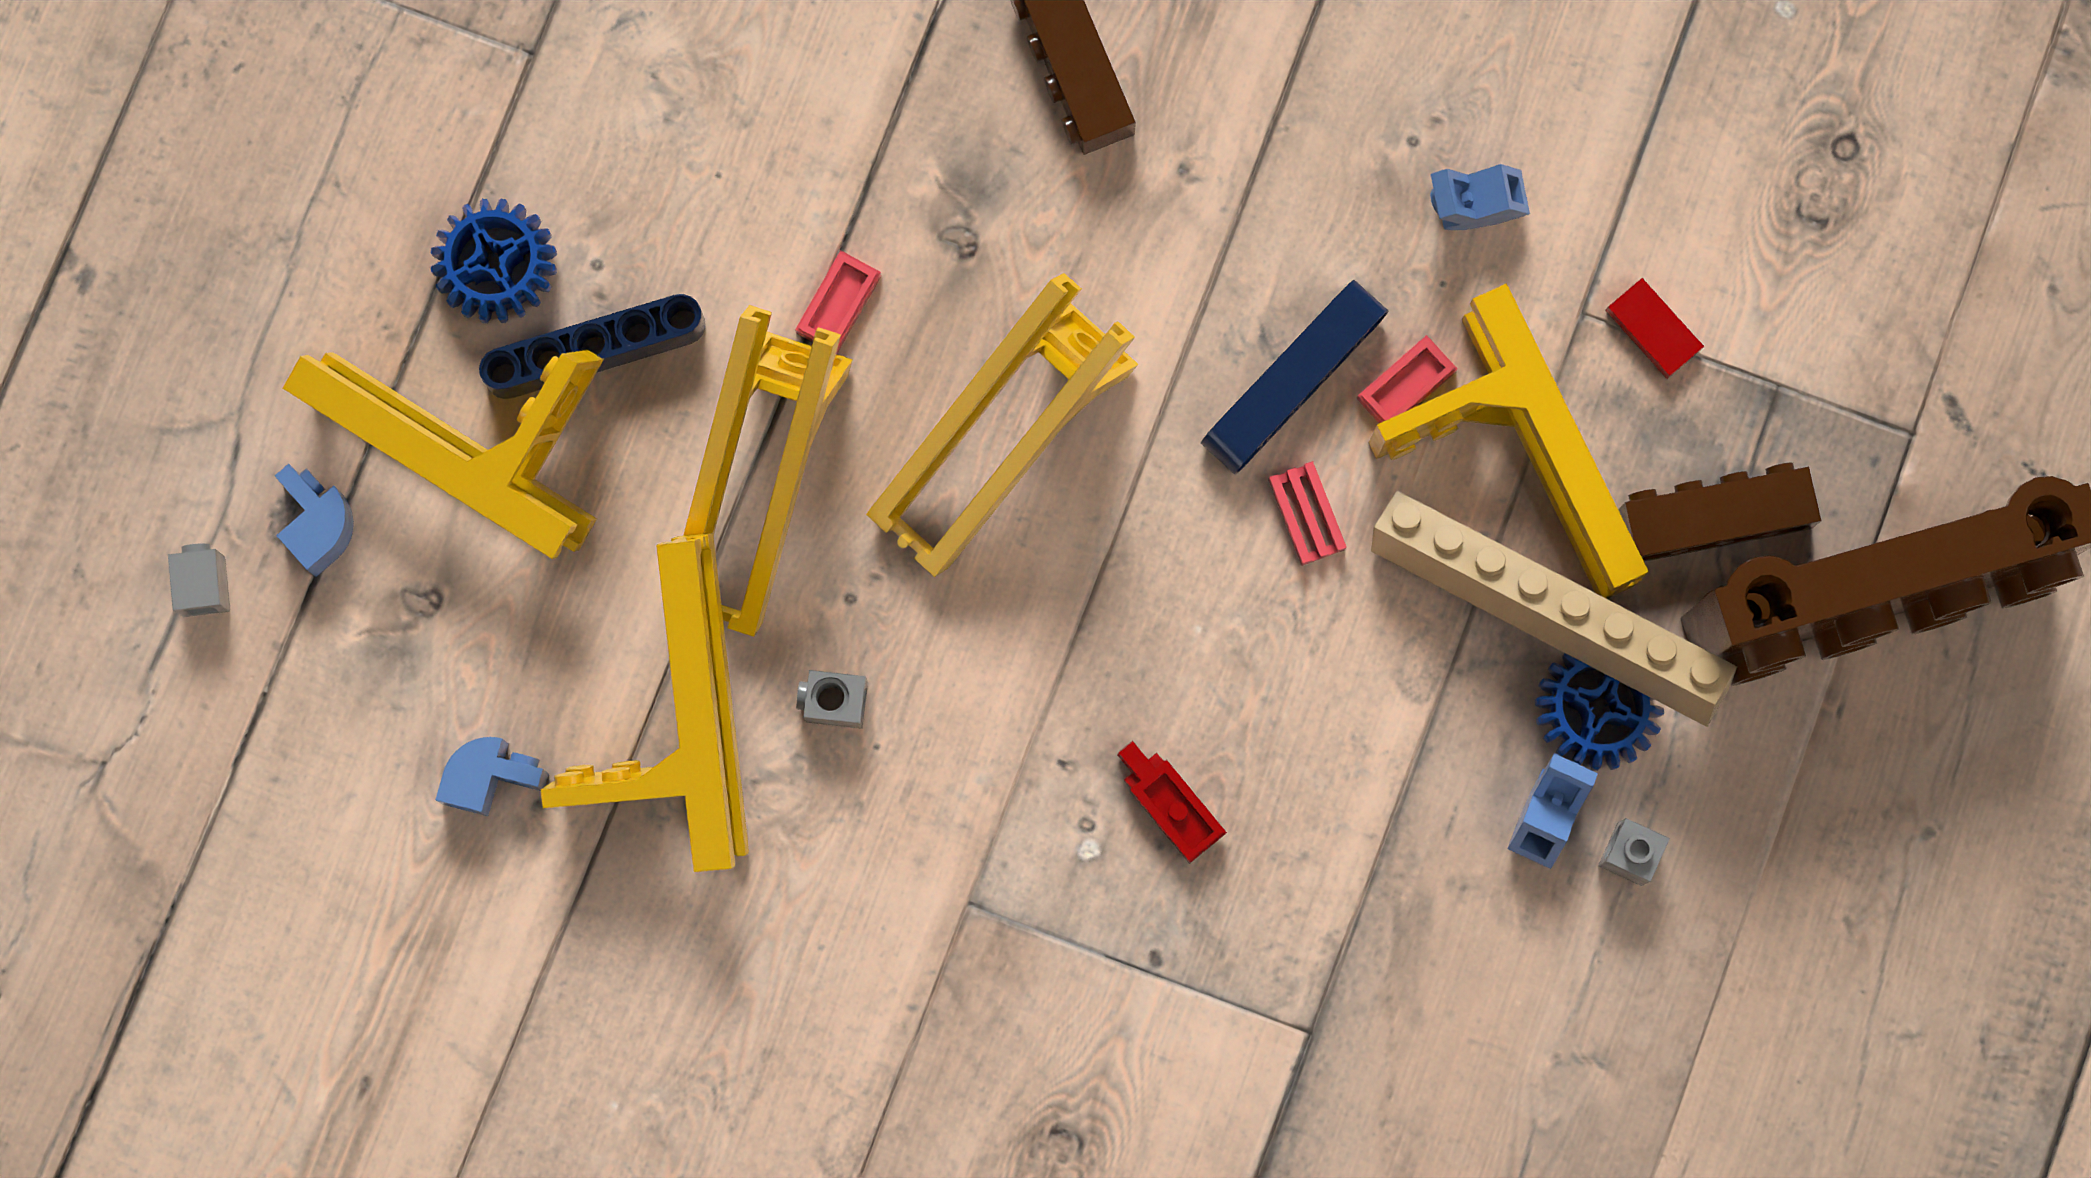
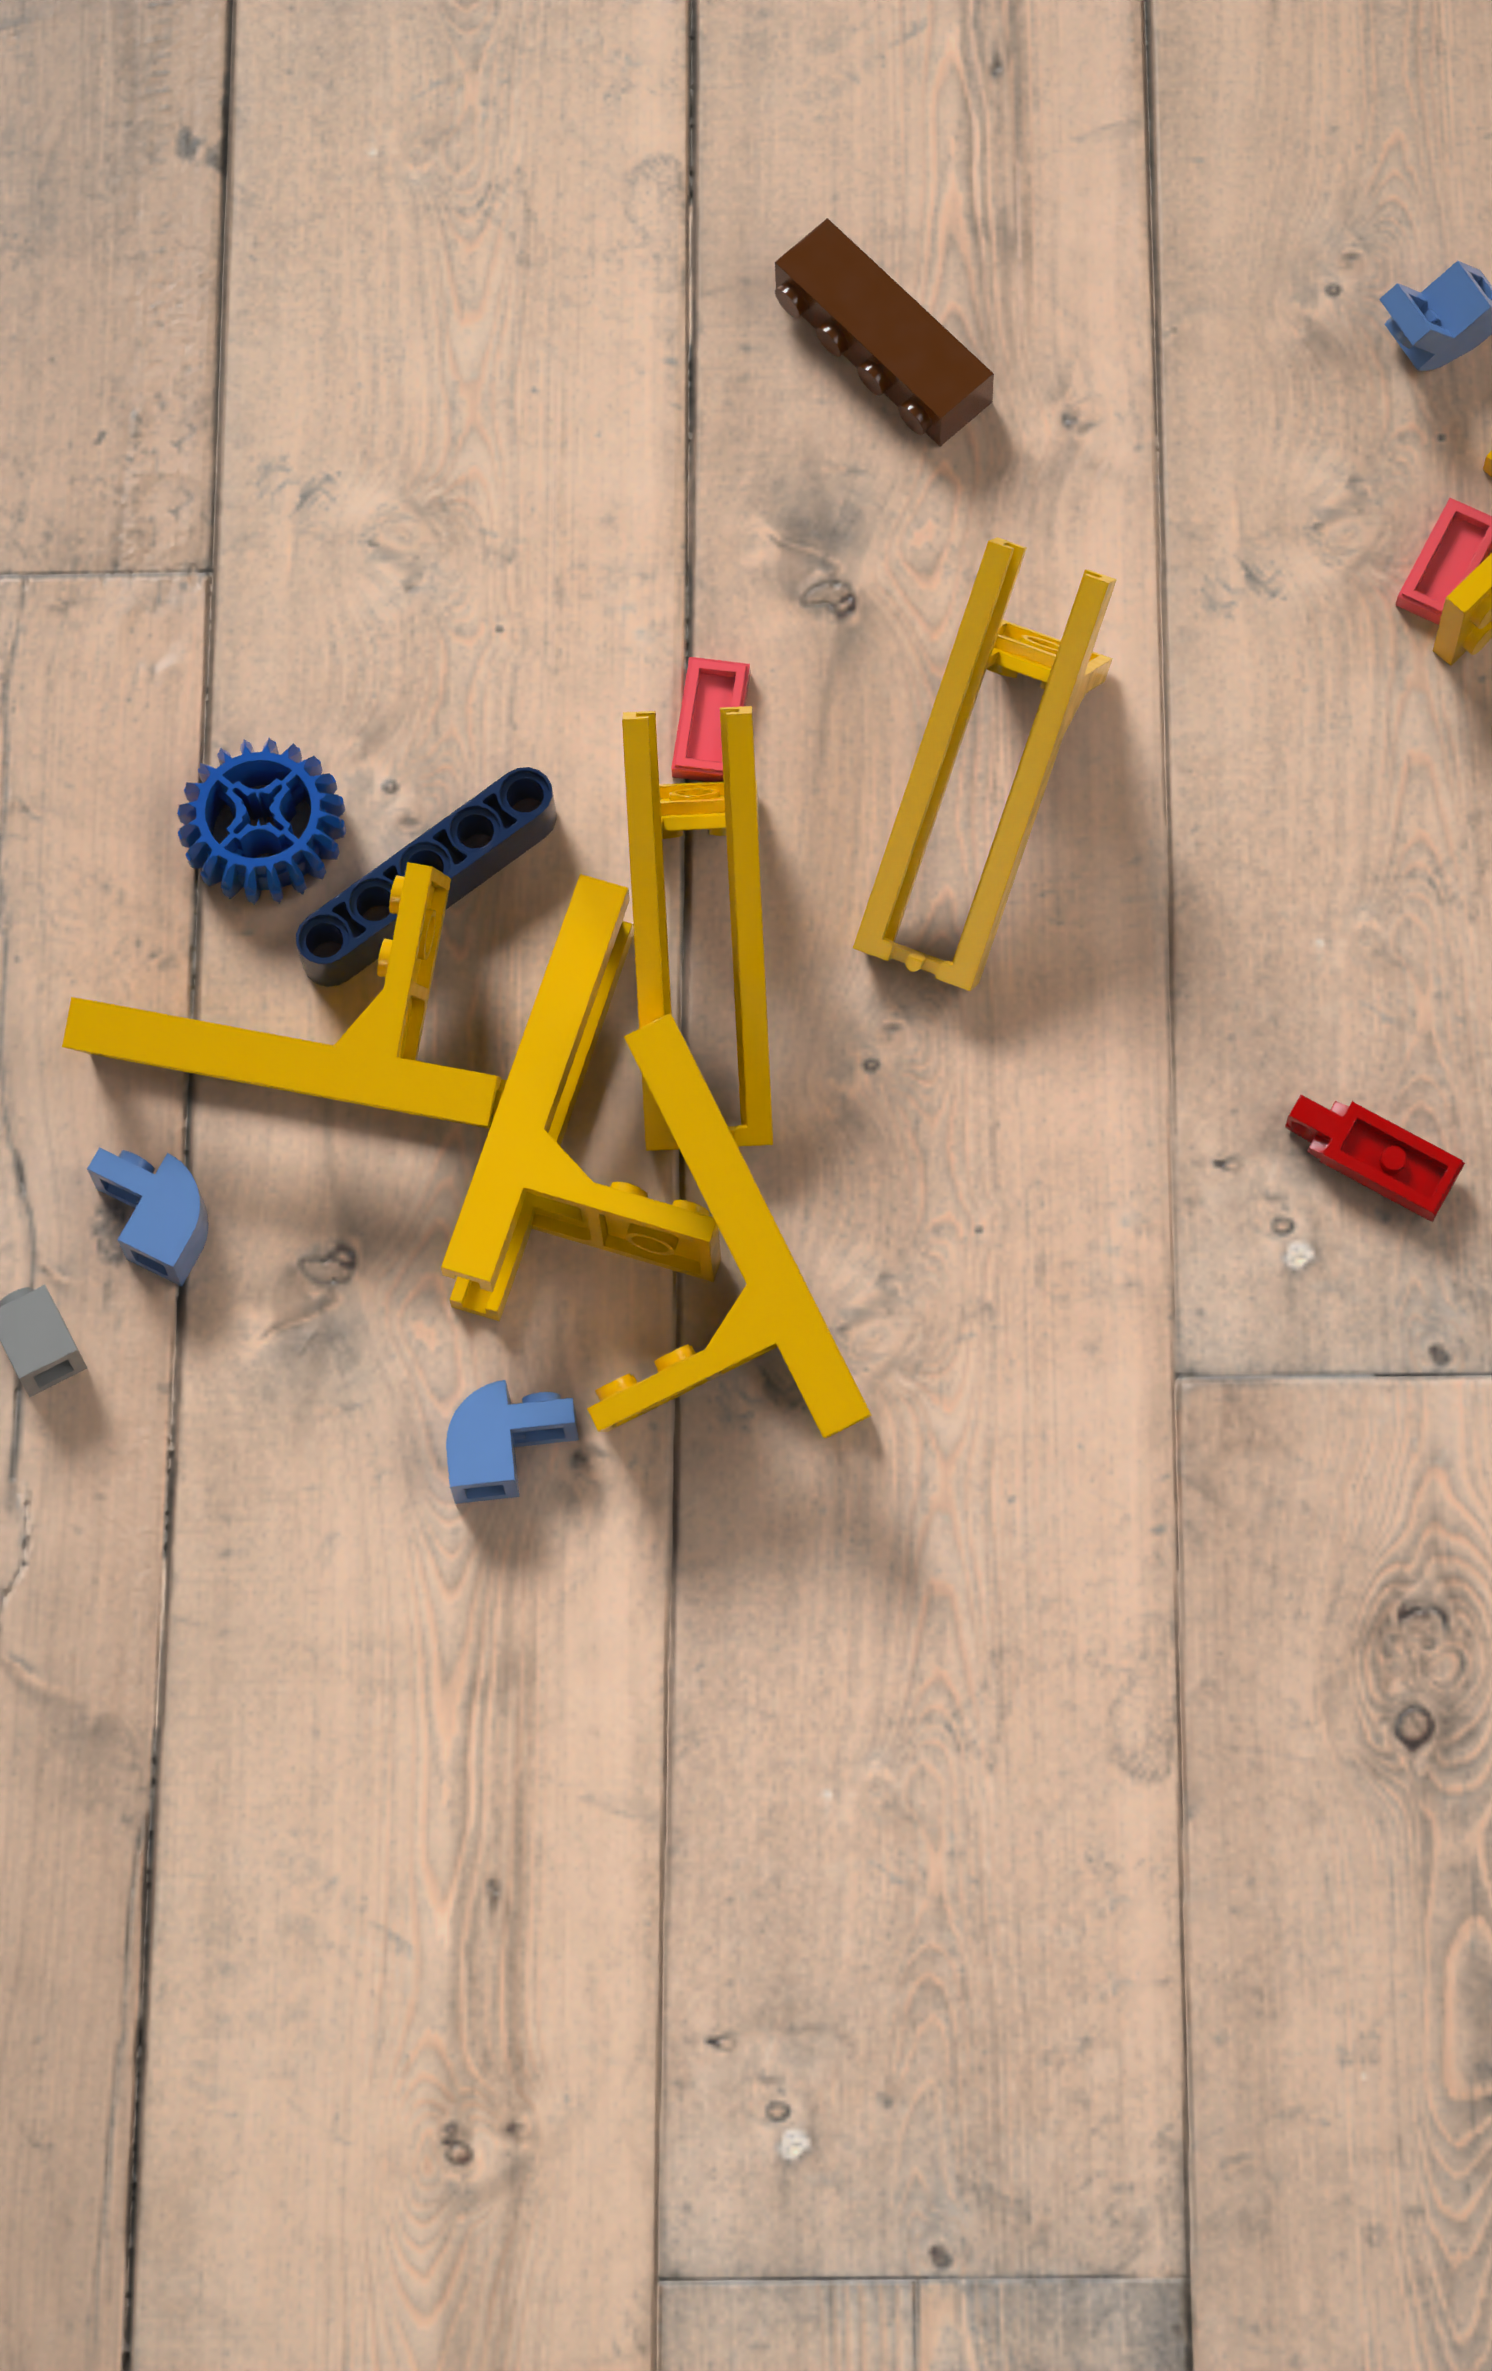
camera: 15 degrees left, 10 degrees down
(571, 585) = (523, 1171): none -> yellow piece
(848, 714) = (917, 1160): light grey brick -> none
(1293, 476) = (1412, 740): coral tile -> none
(1294, 377) = (1311, 602): dark blue beam -> none

